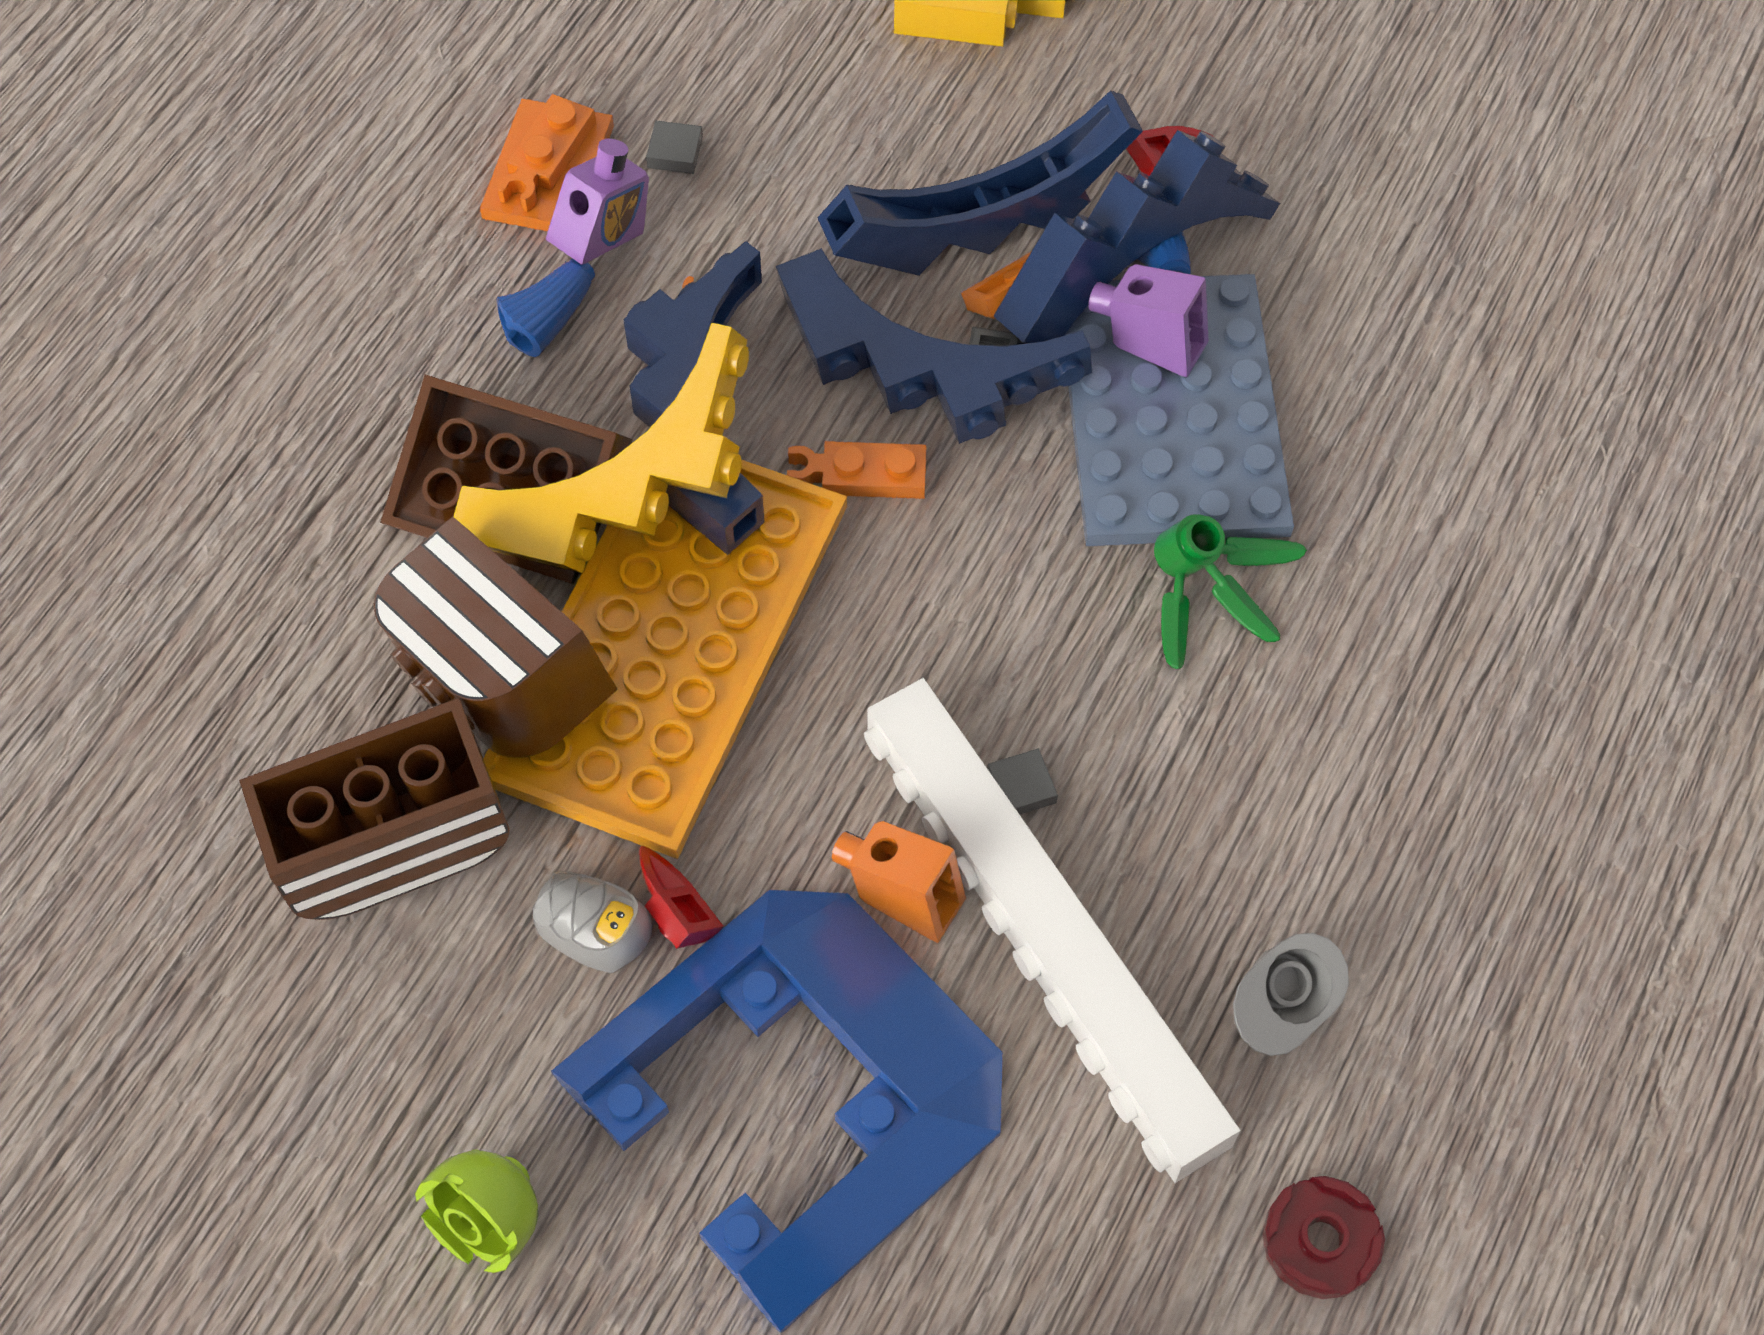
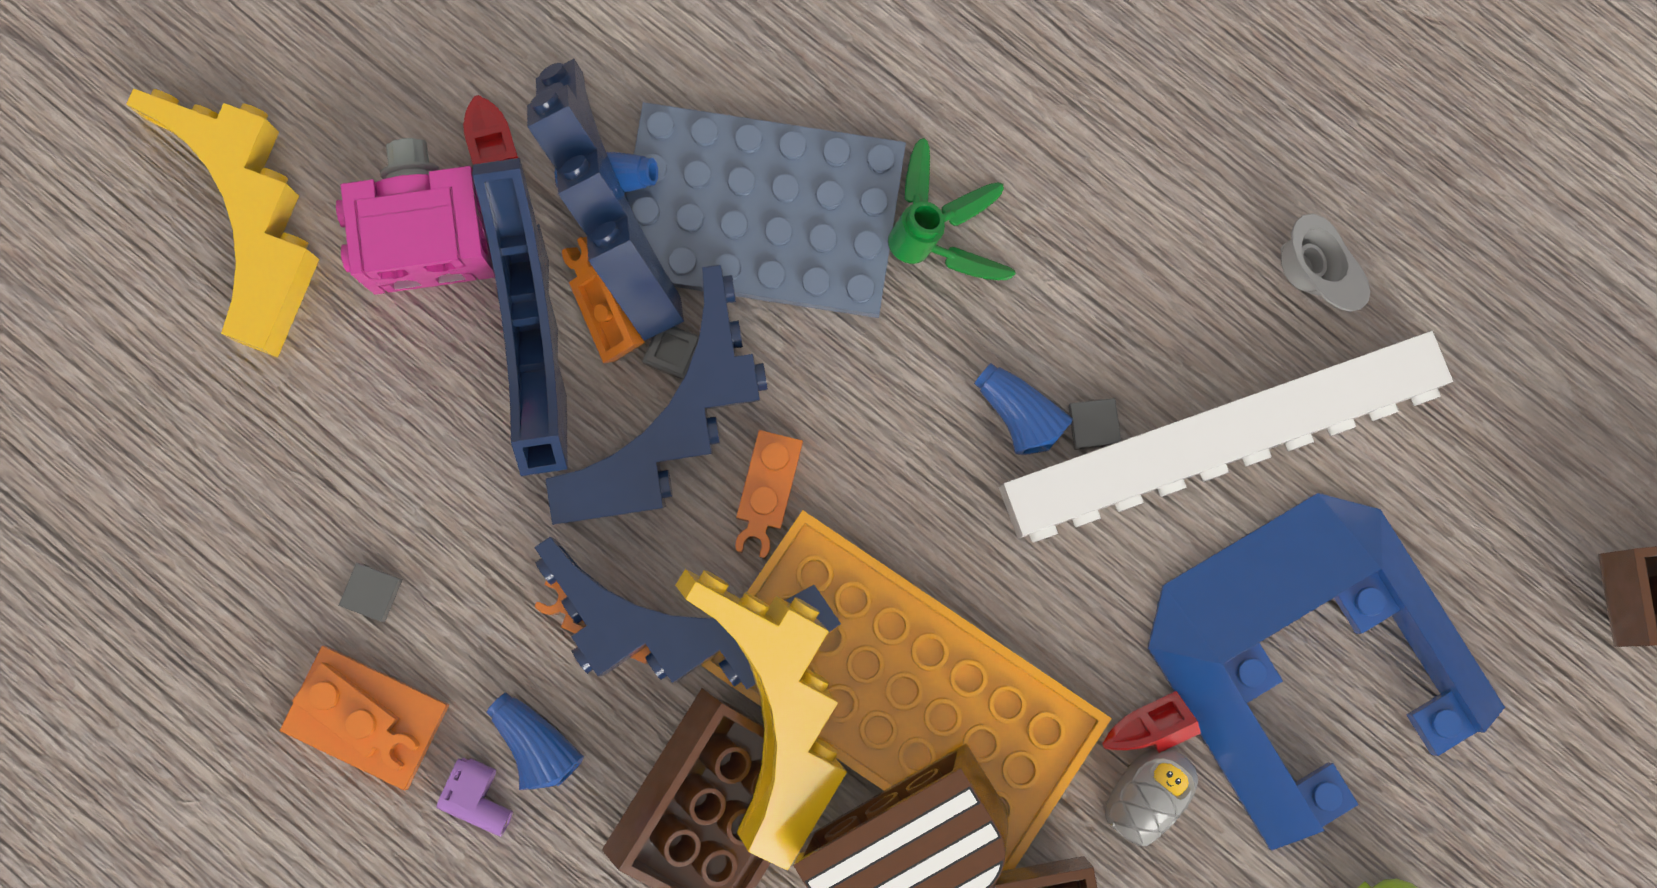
camera: 80 degrees left, 20 degrees up
(483, 262) = (466, 795): none -> medium lavender piece
(600, 204) = (442, 664): medium lavender torso -> none
(904, 876) = (1190, 529): orange torso -> none
(1011, 707) = (1029, 415): none -> blue piece
(1048, 76) = (413, 224): none -> dark pink piece
(1156, 315) = (695, 183): medium lavender torso -> none
(1308, 1268) = (1480, 310): dark red tile -> none

